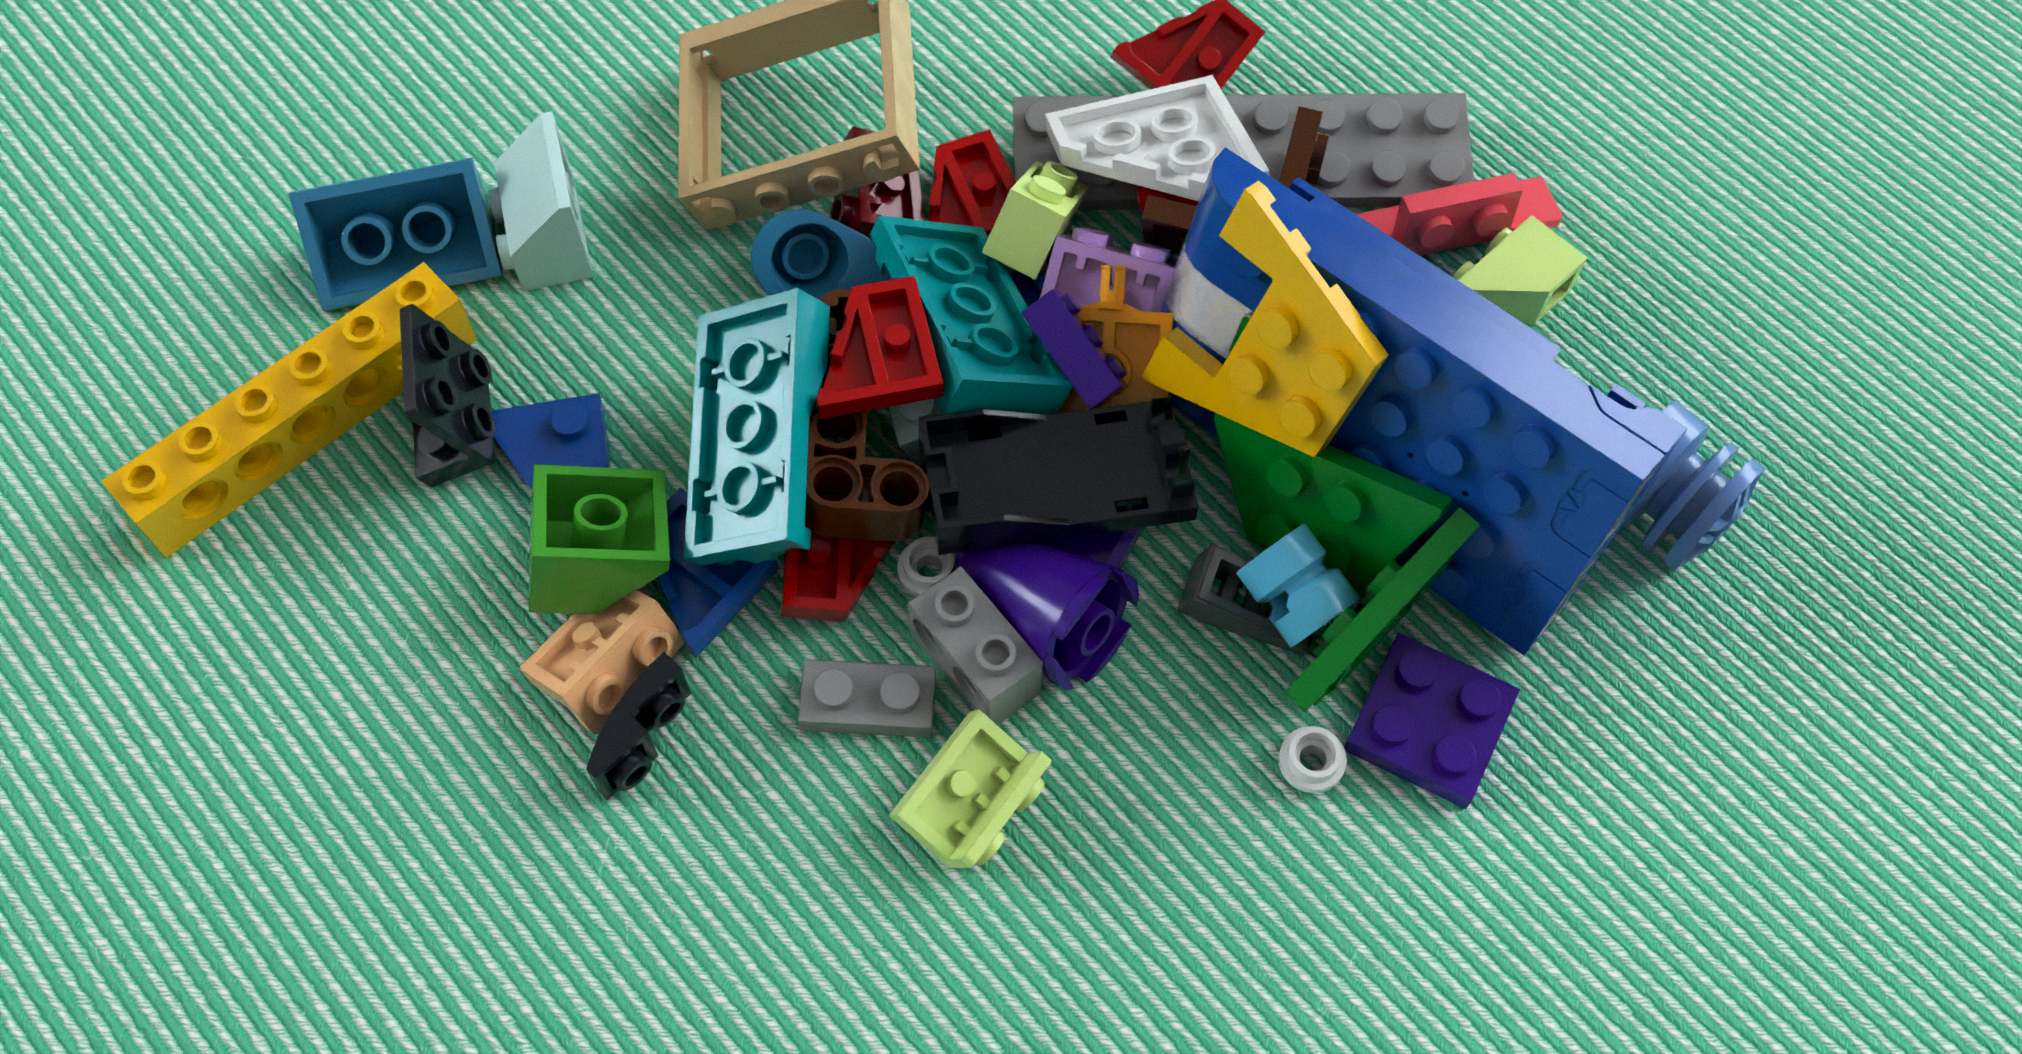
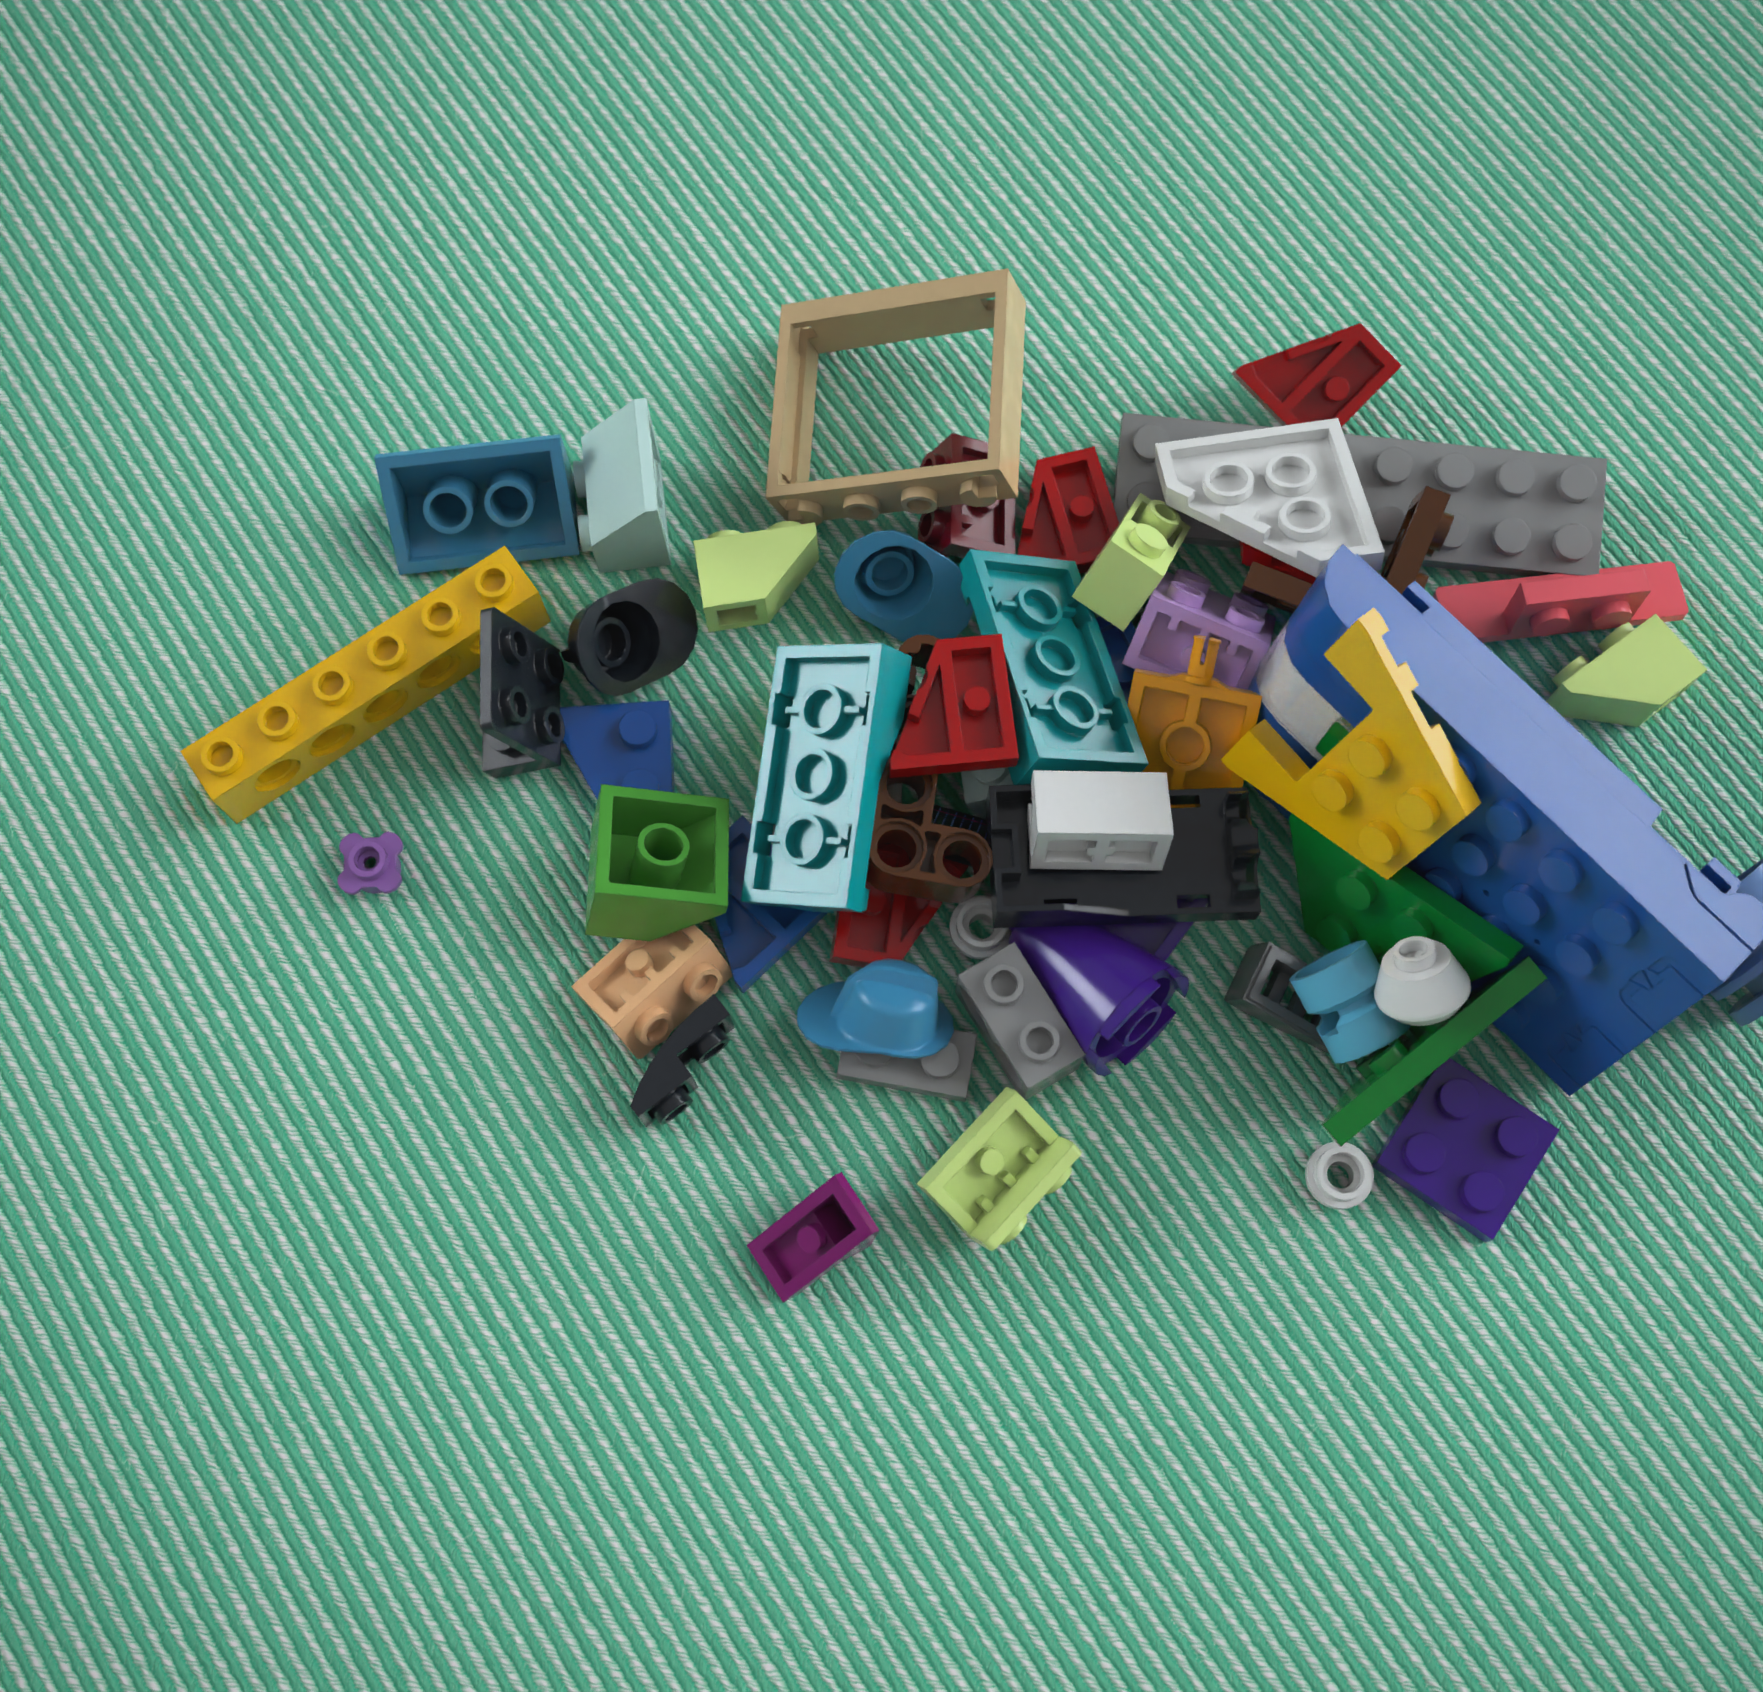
camera: 10 degrees right, 10 degrees up
(315, 589) = (384, 876): none -> medium lavender plate
(558, 336) = (632, 636): none -> black piece
(673, 270) = (753, 573): none -> yellowish green slope
(788, 877) = (814, 1237): none -> magenta slope
(835, 649) = (879, 1010): none -> dark azure piece
(1029, 435) = (1099, 820): none -> white hinge
(1076, 348) = (1157, 722): dark purple piece -> none
(1360, 544) = (1420, 982): none -> white cone

